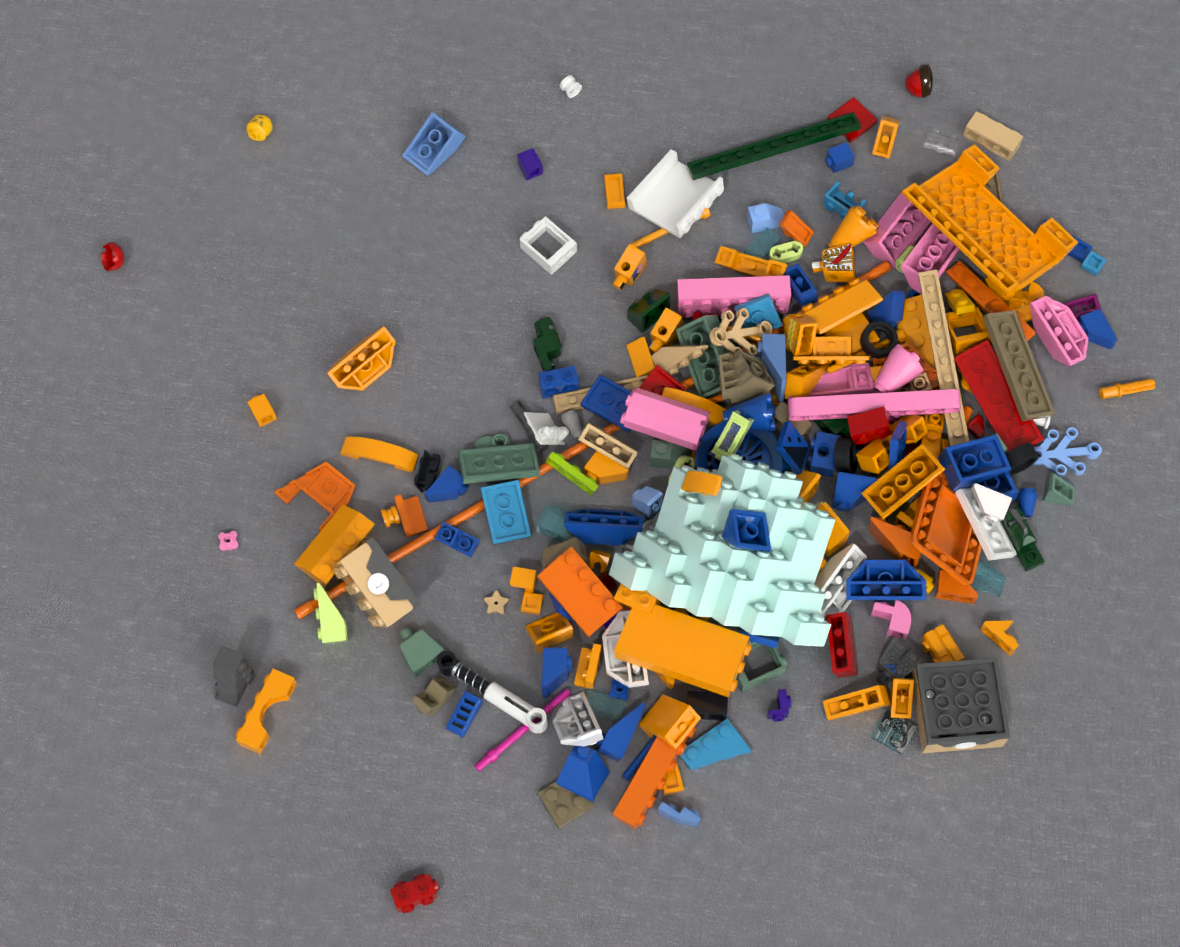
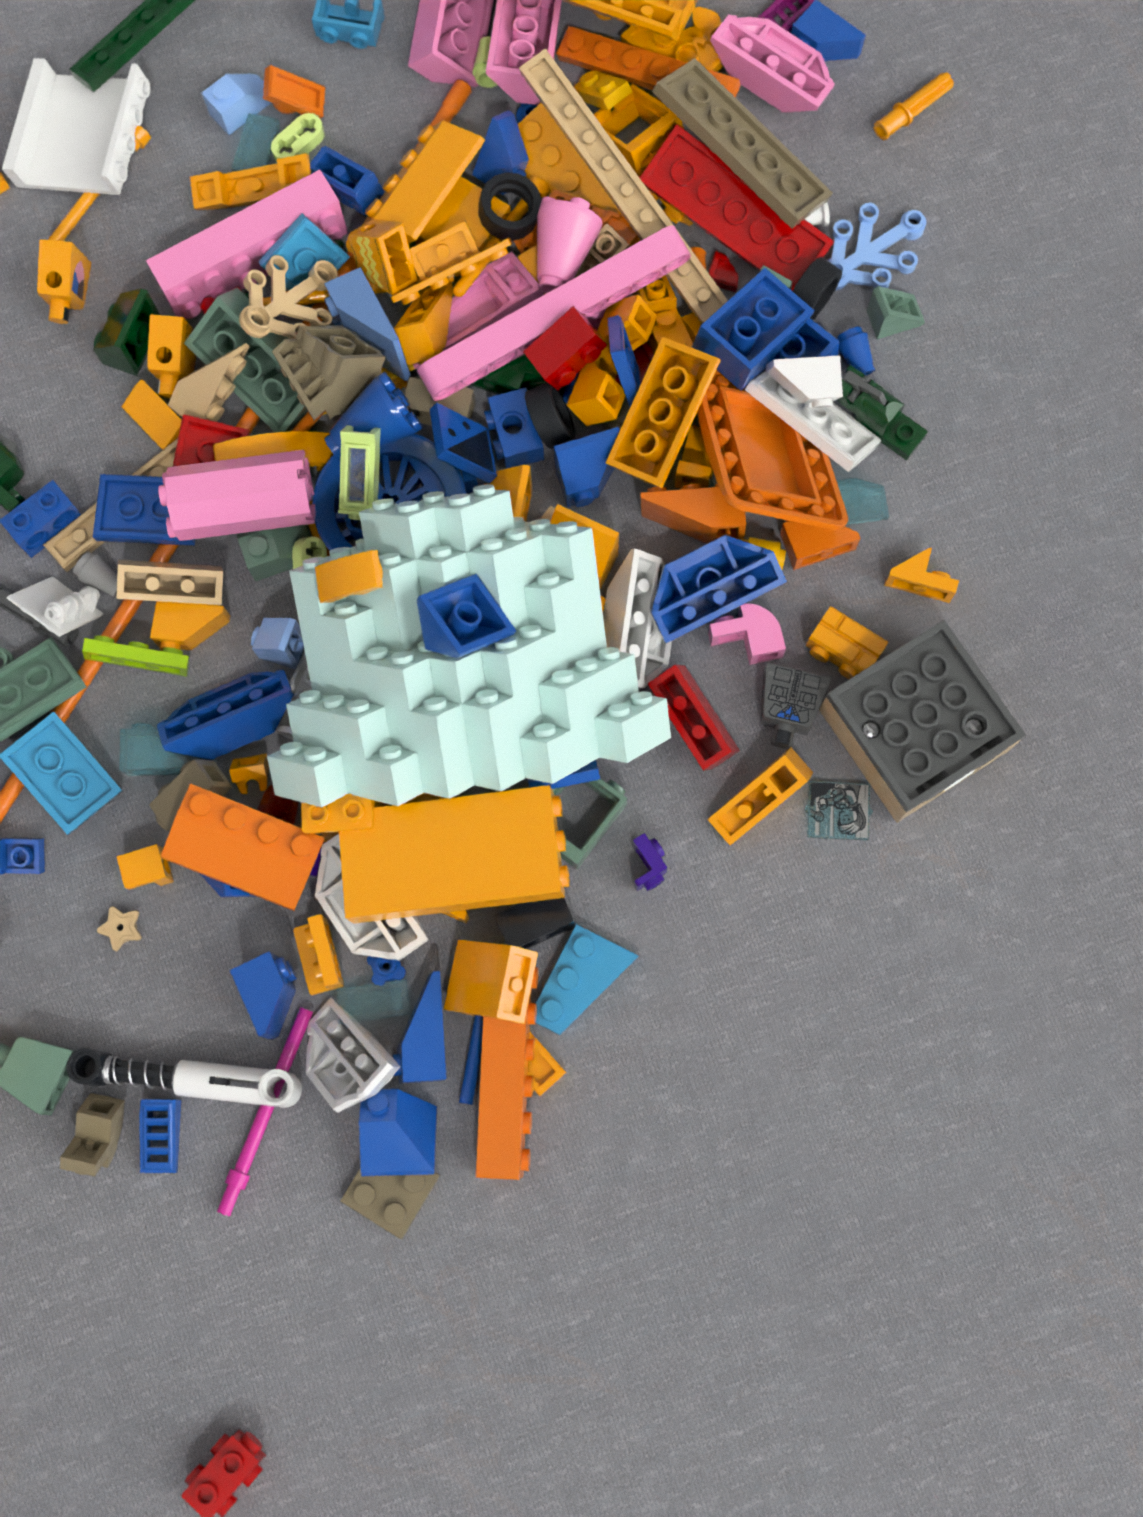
camera: 25 degrees left, 10 degrees up
(532, 603) = (178, 897): light orange tile -> none
(549, 631) = (227, 930): light orange slope -> none
(685, 817) = (593, 1115): medium blue slope -> none
(837, 264) = (385, 119): torso -> none
(854, 228) = (383, 54): light orange cone -> none
(901, 697) = (825, 754): light orange slope -> none

